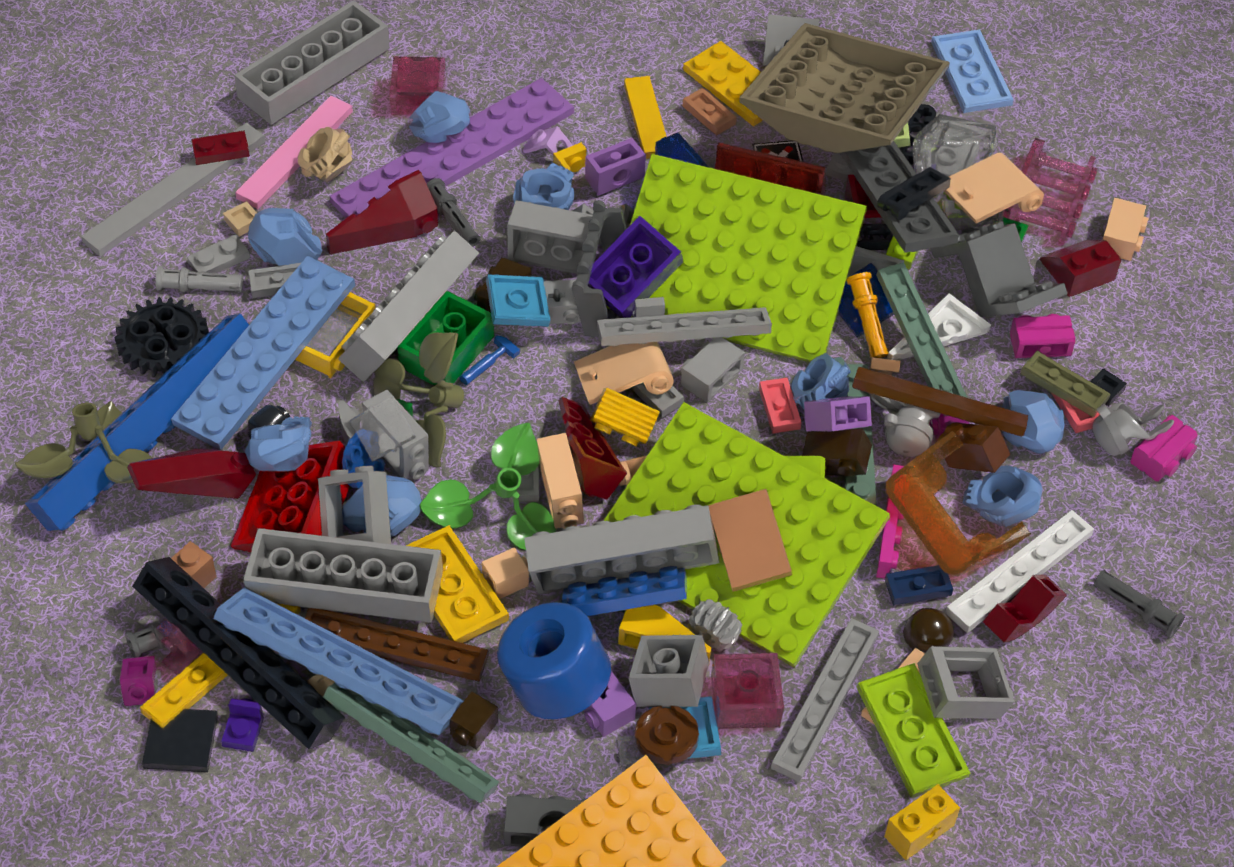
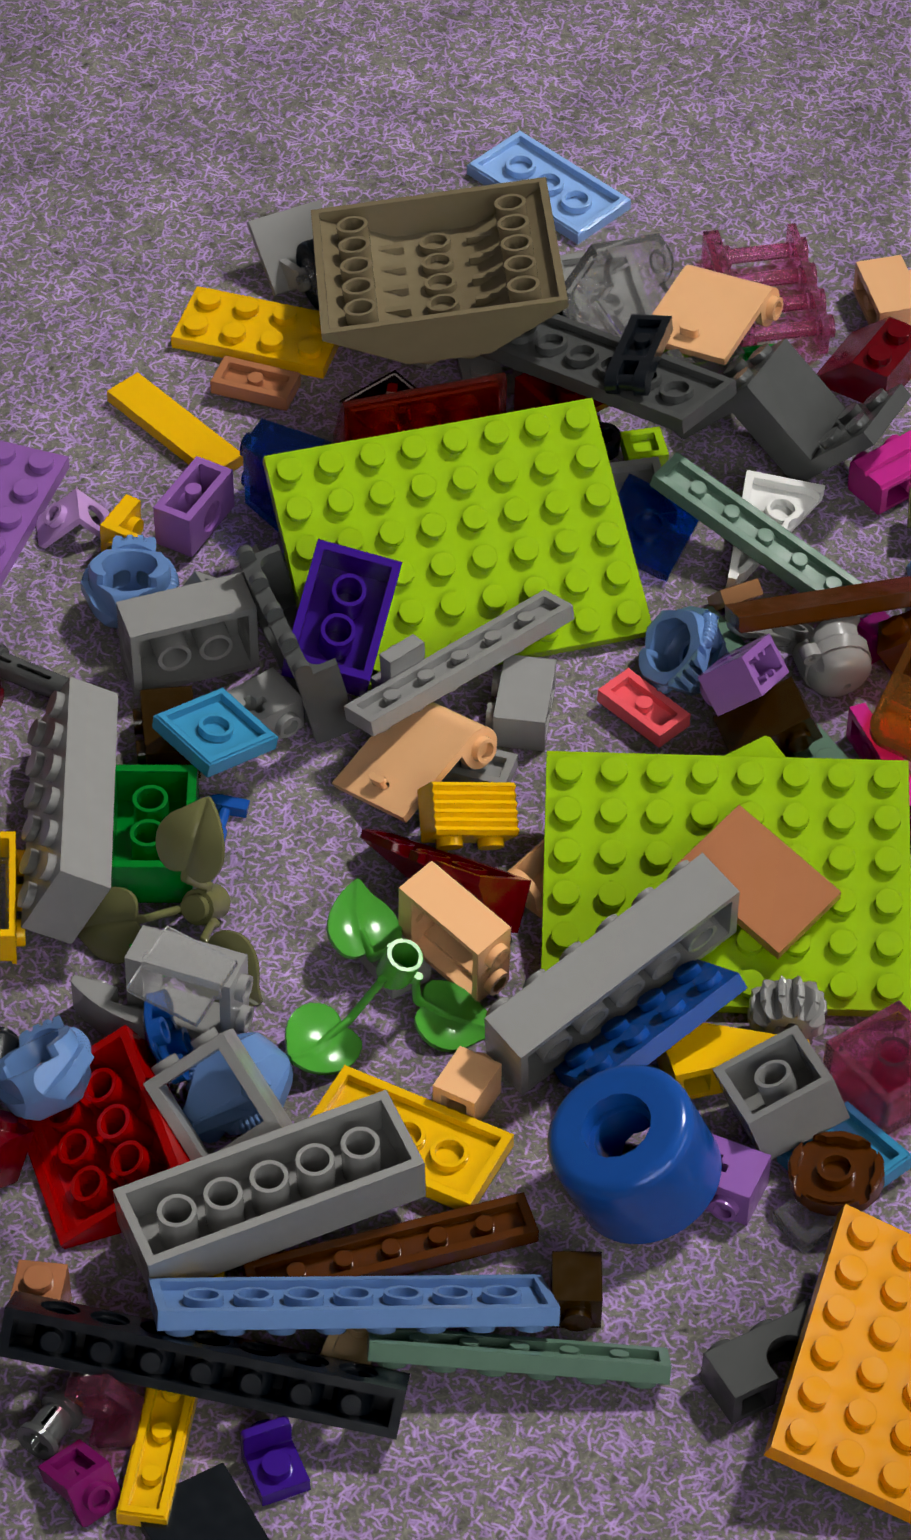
camera: 30 degrees left, 5 degrees down
(865, 303) = (659, 526): light orange pin -> none

